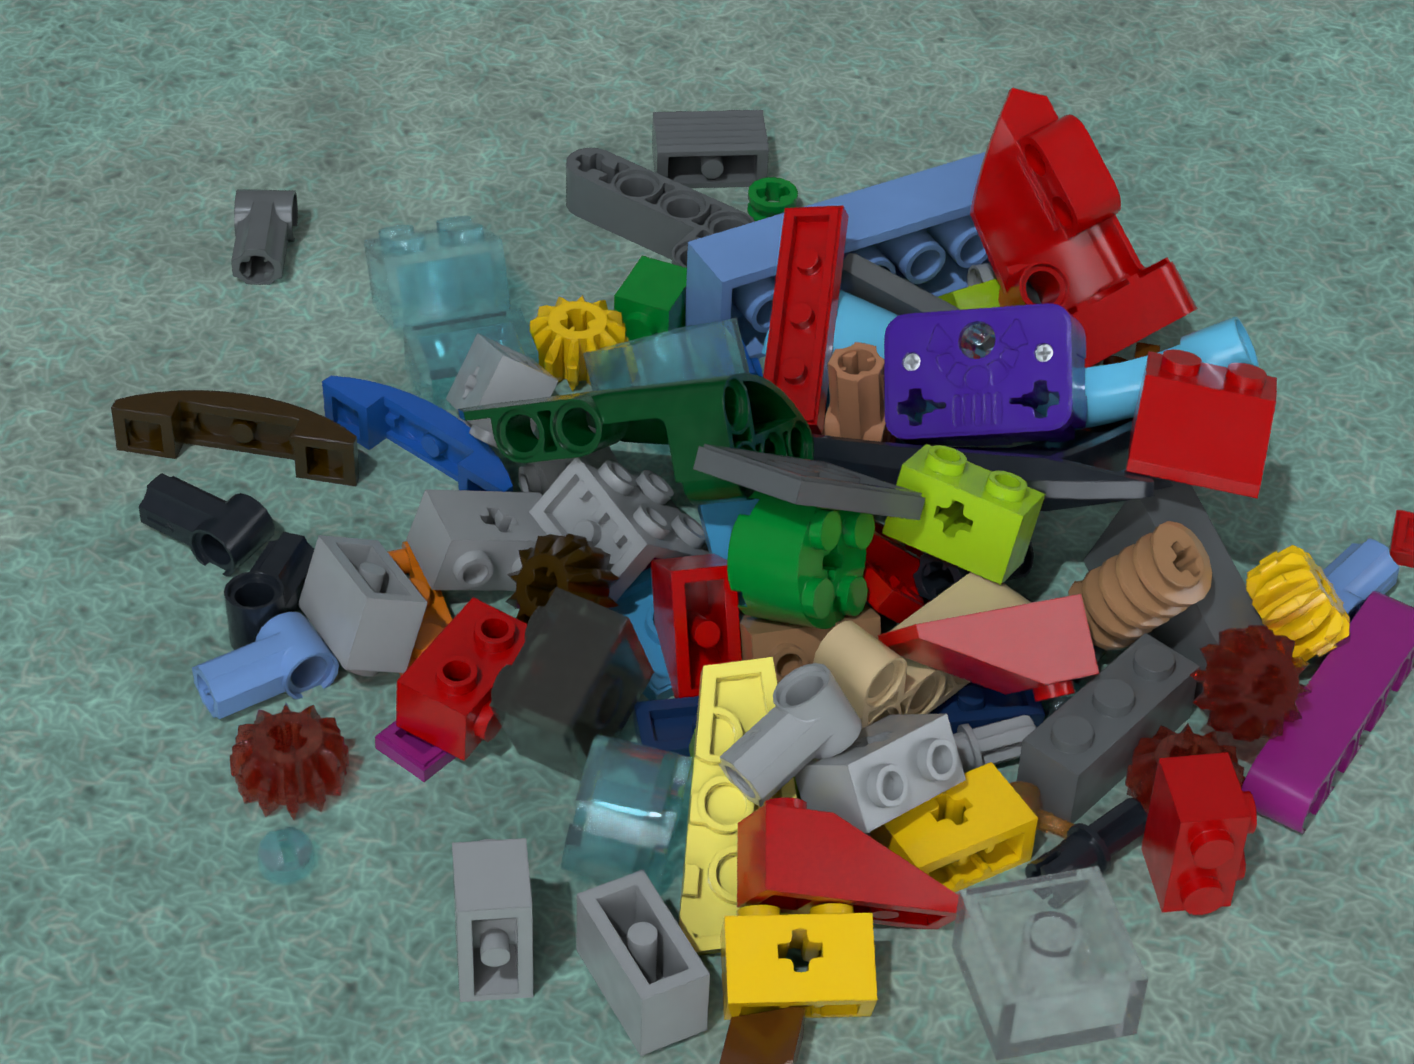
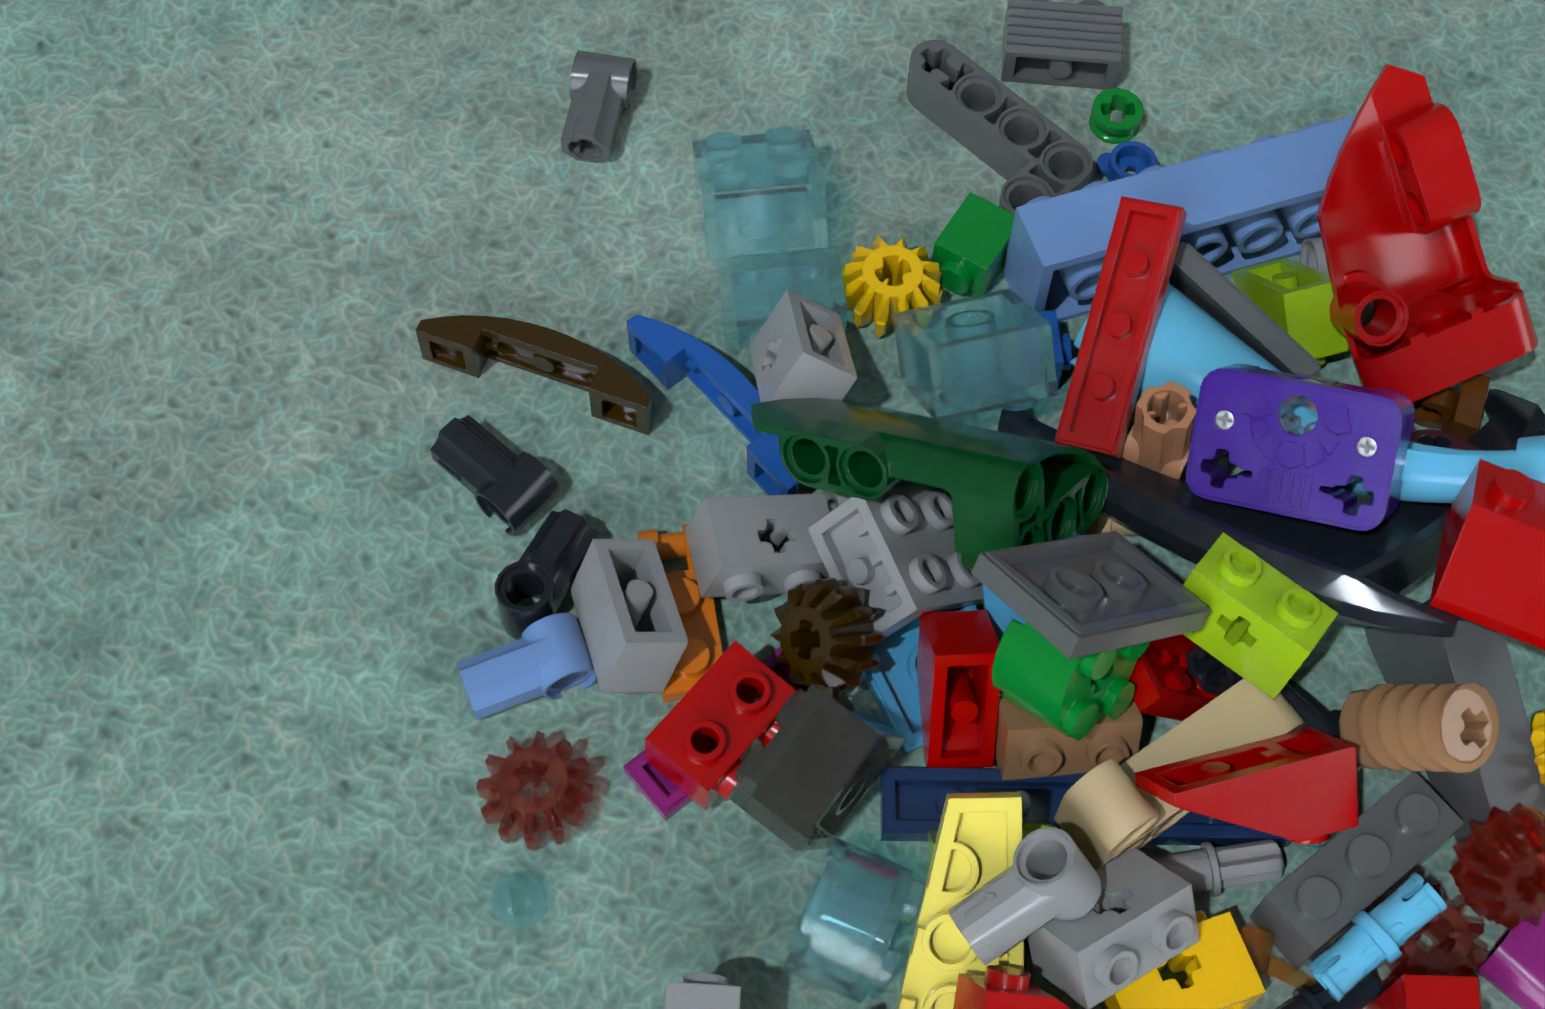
camera: 10 degrees right, 20 degrees up
(1133, 758) = (1376, 936): none -> medium azure pin

